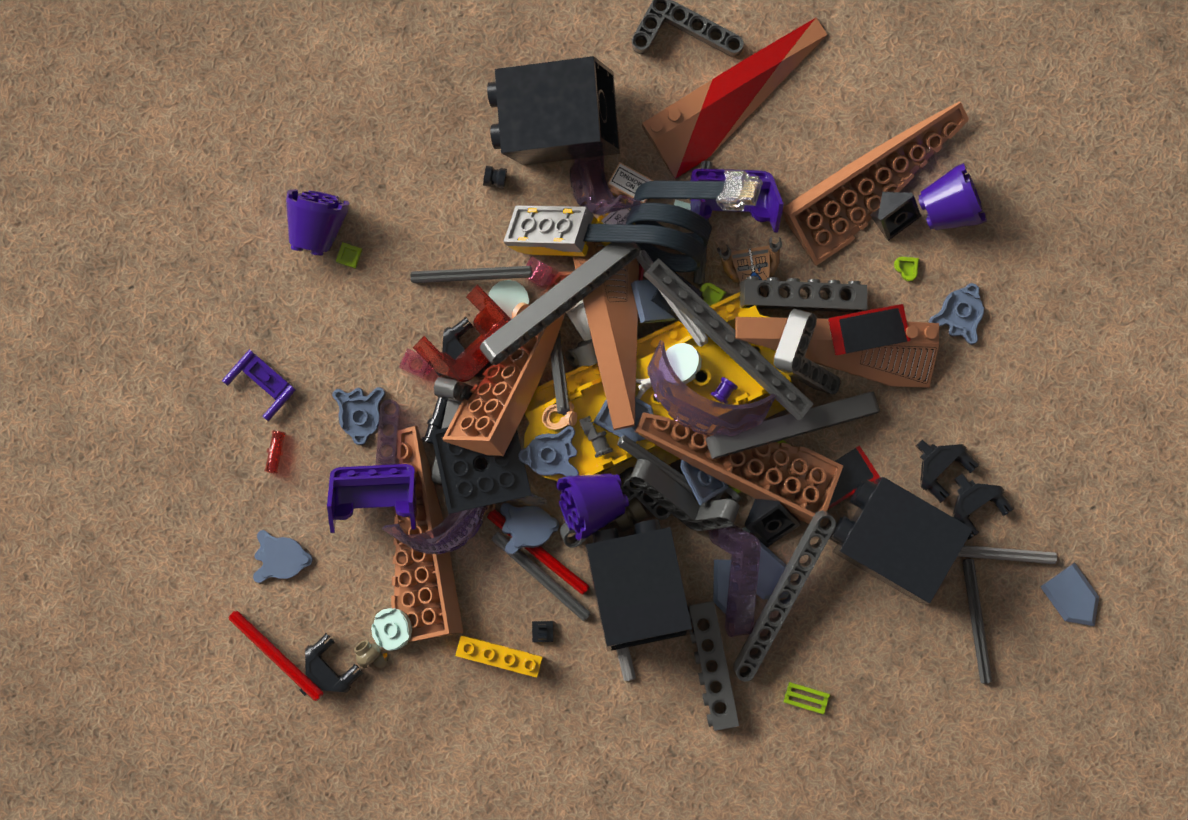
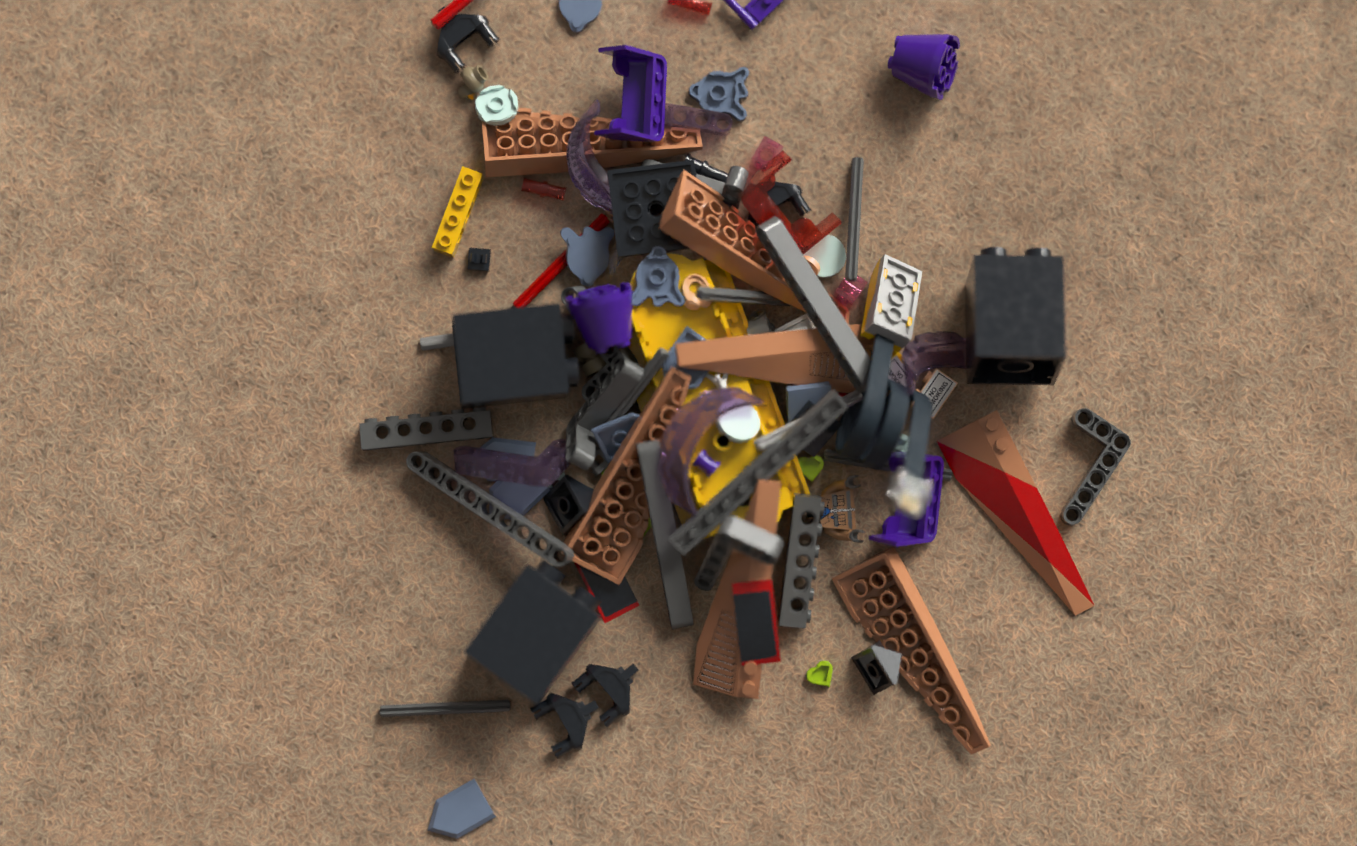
camera: 85 degrees right, 0 degrees up
(349, 255) = (886, 96): lime tile -> none
(469, 575) = (543, 189): none -> clear red pin
(495, 177) = (954, 253): black wheel -> none
(543, 578) = (532, 266): dark grey axle -> none
(598, 440) = (667, 328): dark grey connector -> none
(790, 693) = (383, 523): lime tile -> none
(952, 201) = (885, 727): dark purple cone -> none
(962, 313) = (768, 726): sand blue tile -> none
(1008, 554) = (511, 745): light grey axle -> none

